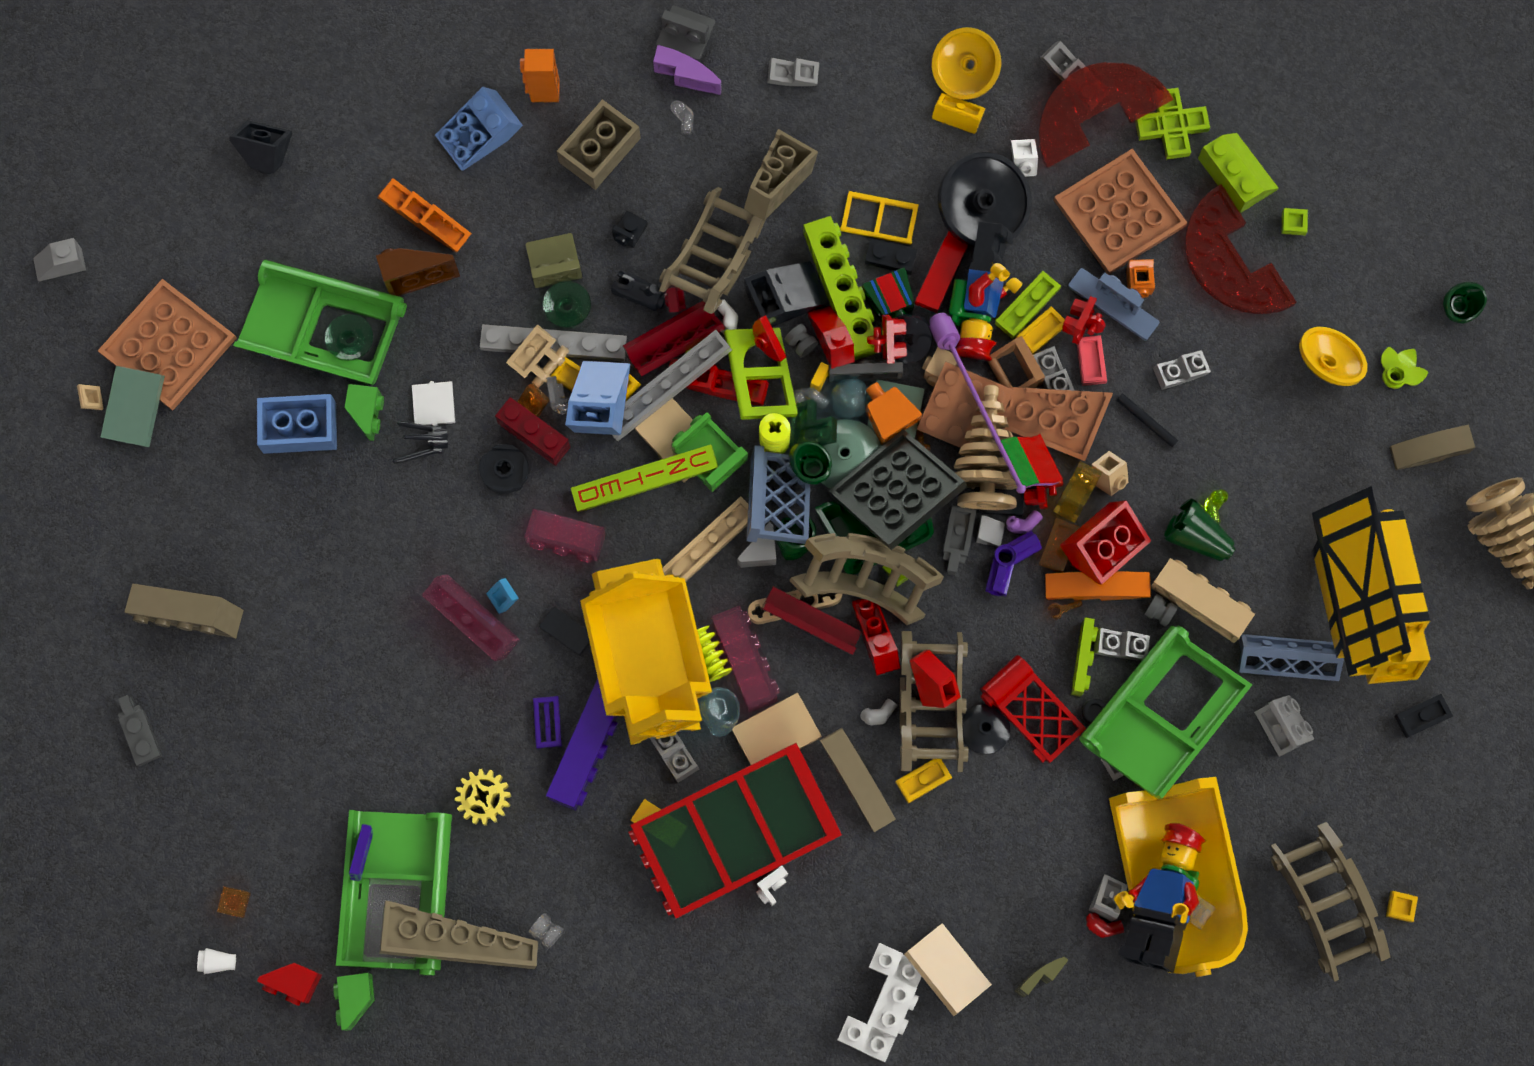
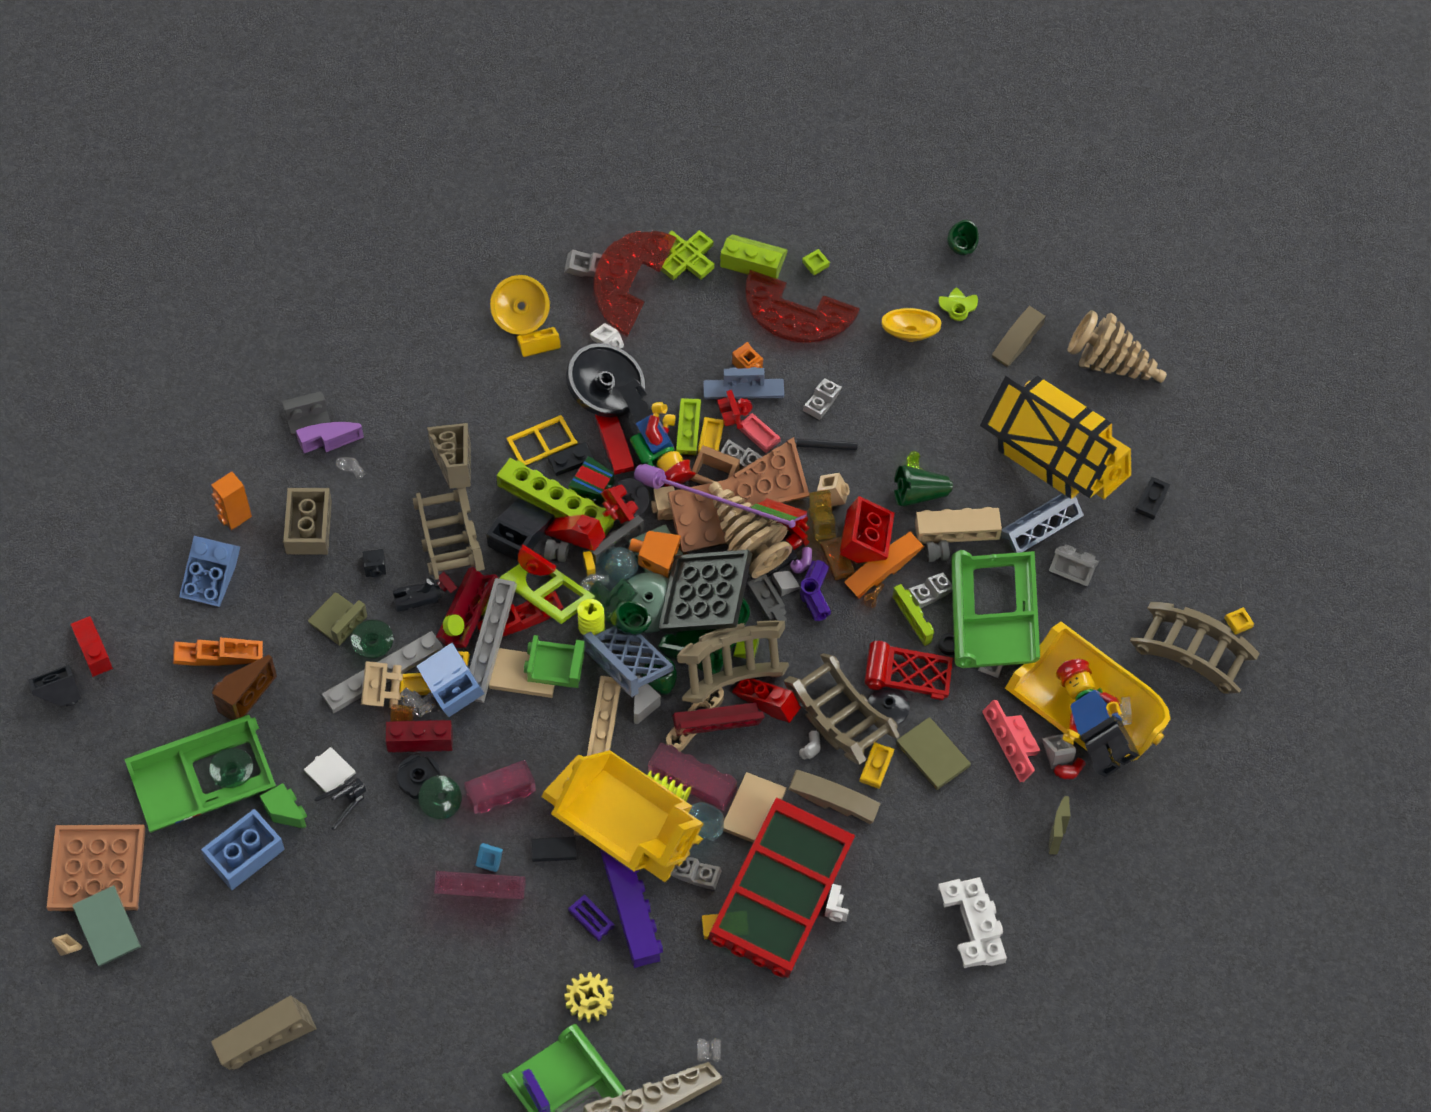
camera: 40 degrees left, 15 degrees down
(321, 127) = (91, 646): none -> red slope
(513, 494) = (430, 801): none -> clear green dish
(644, 478) = (524, 710): lime tile -> none
(645, 346) = (453, 625): none -> lime tile
(730, 316) = (492, 569): white arm -> none
(795, 73) = (407, 388): light grey slope -> none
(934, 681) = (832, 693): red slope -> none
(947, 969) = (996, 869): tan tile -> none
(988, 808) = (933, 753): none -> olive tile
(1076, 854) = (1013, 738): none -> coral bracket
(1120, 211) = (699, 330): nougat plate -> none

